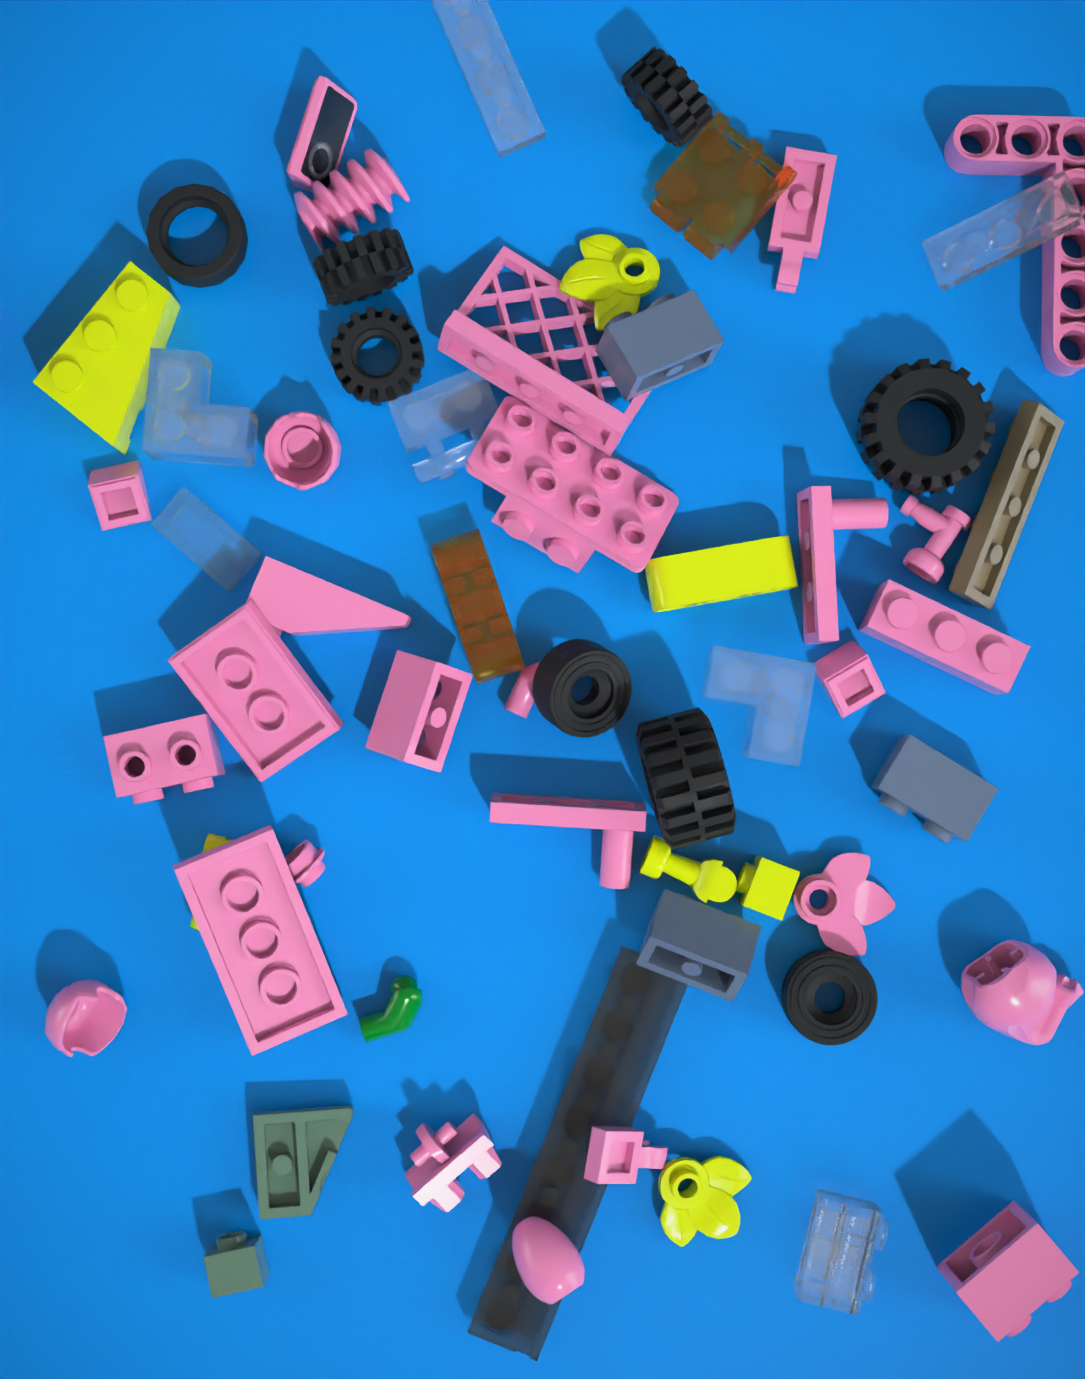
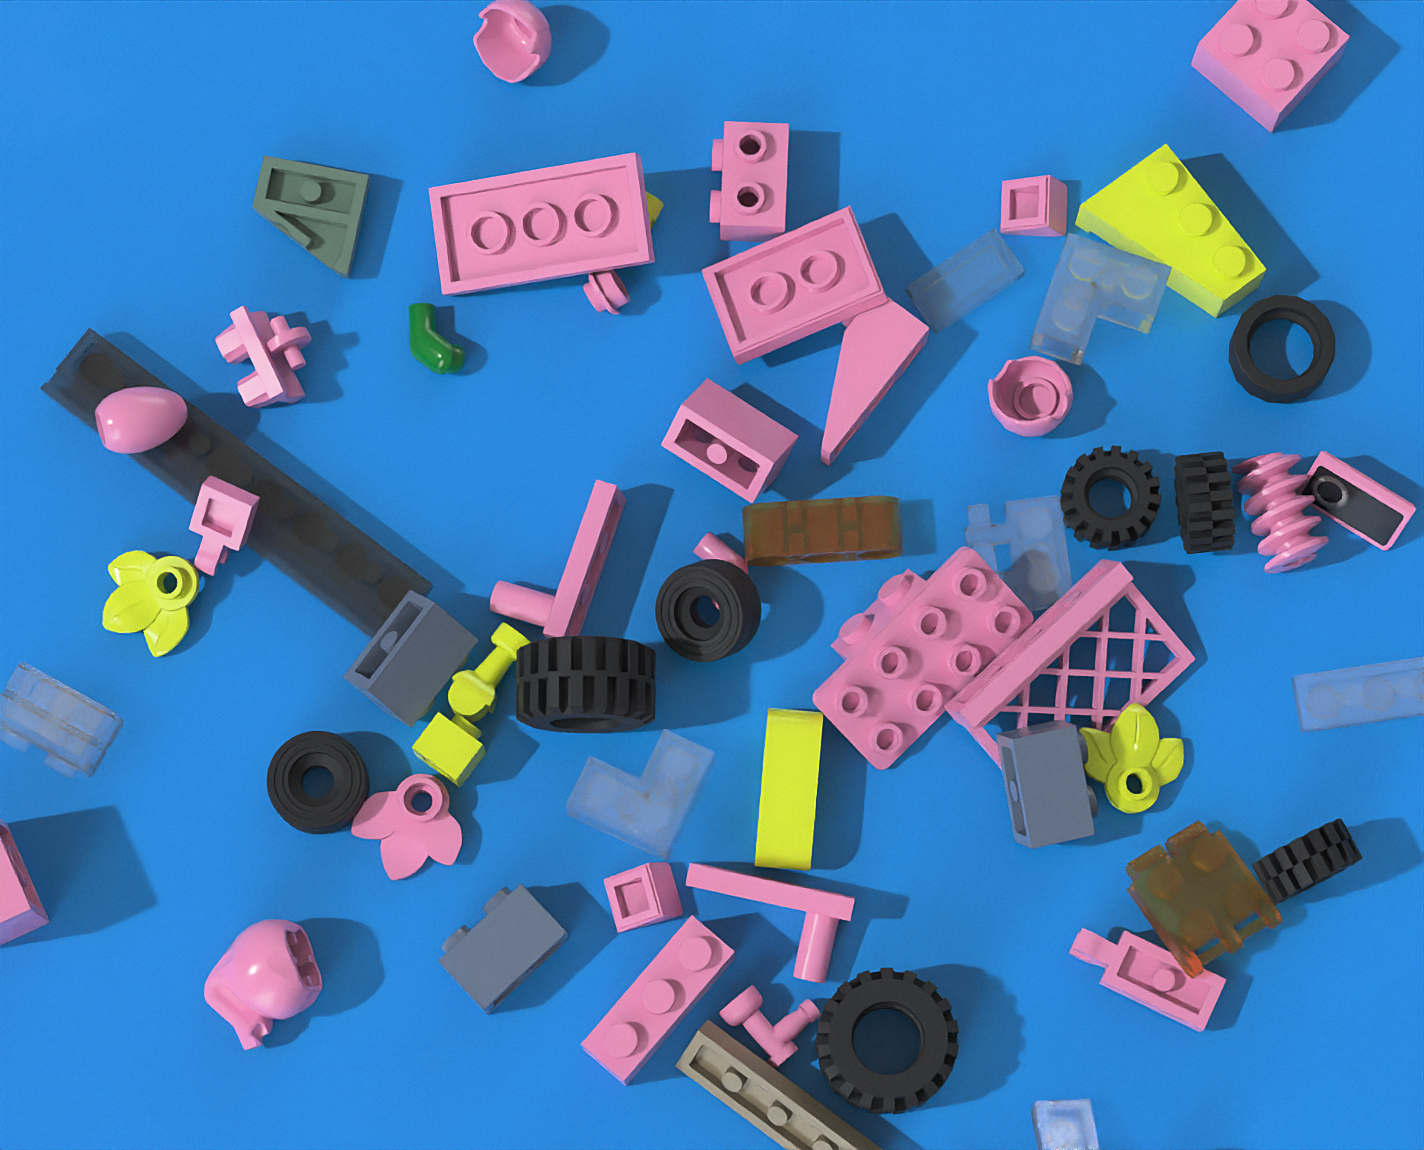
camera: 110 degrees right, 10 degrees down
(236, 1264) = (226, 122): sand green plate -> none

